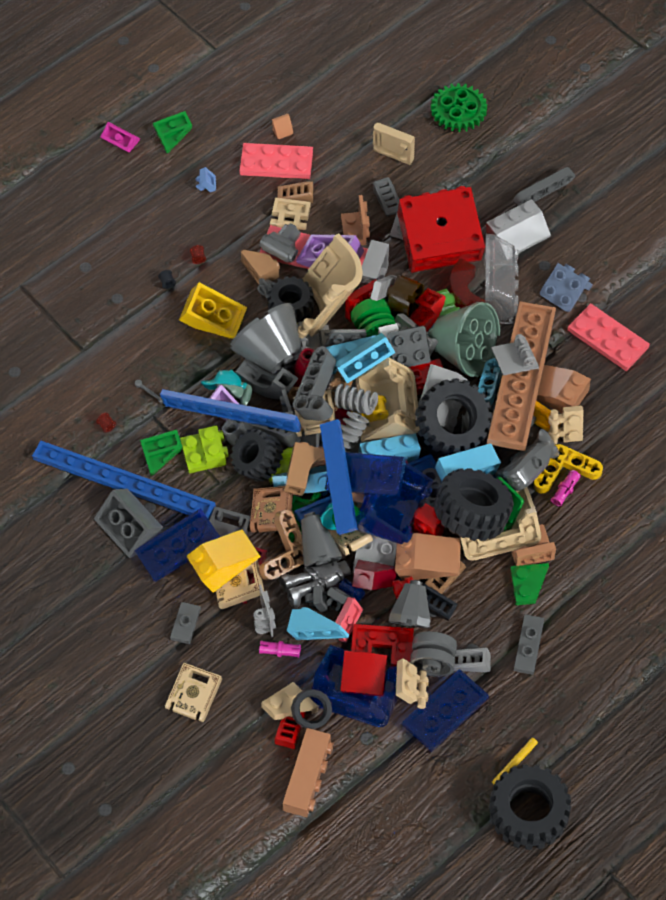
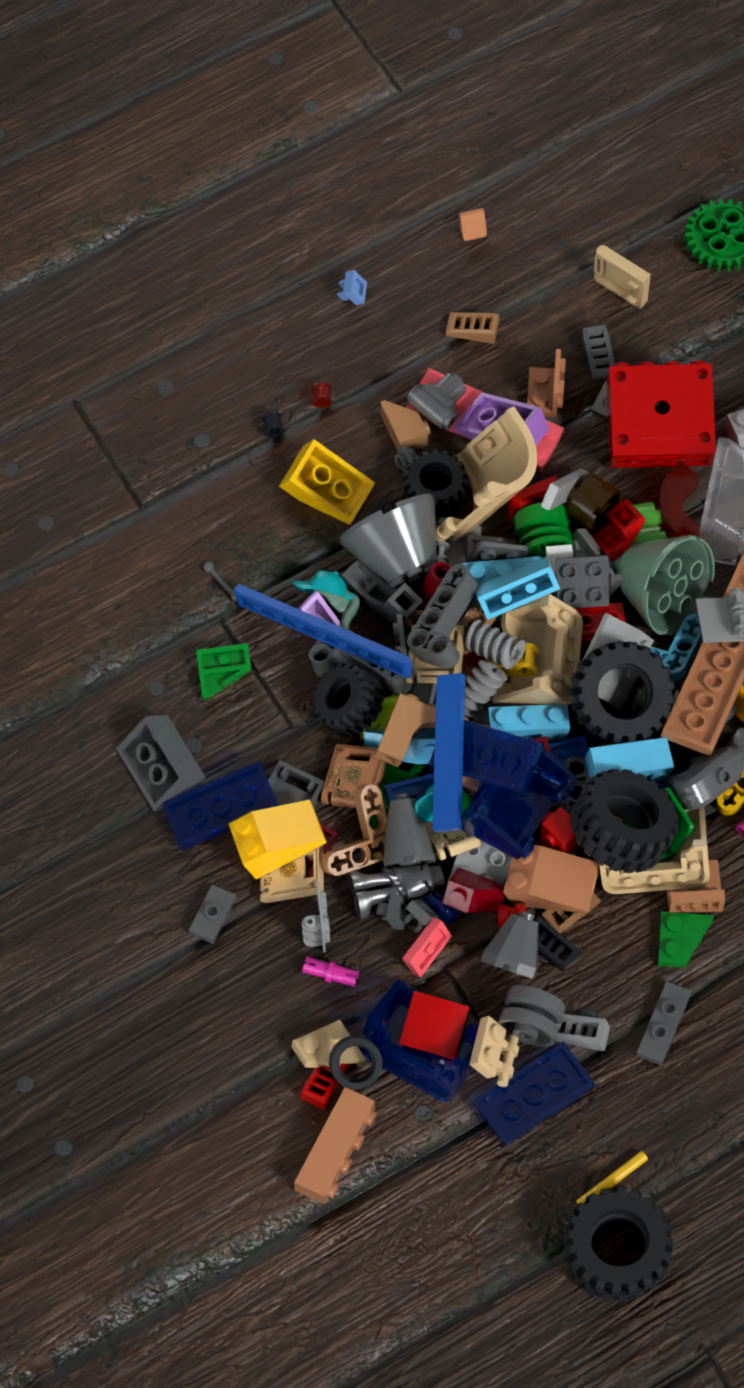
camera: 10 degrees right, 5 degrees up
(106, 422) = (155, 616): clear red axle -> none
(119, 137) = (245, 203): dark pink slope -> none
(121, 479) = (163, 701): blue plate -> none
(172, 130) = (320, 205): green wing -> none
(193, 695) = (204, 1015): tan container -> none
(204, 449) = (280, 677): lime plate -> none
(276, 161) = (455, 273): coral plate -> none
(290, 209) = (460, 349): tan plate -> none
(310, 625) = (374, 947): medium azure slope -> none
(375, 262) = (560, 451): light grey window -> none
(396, 638) = (486, 983): red plate -> none

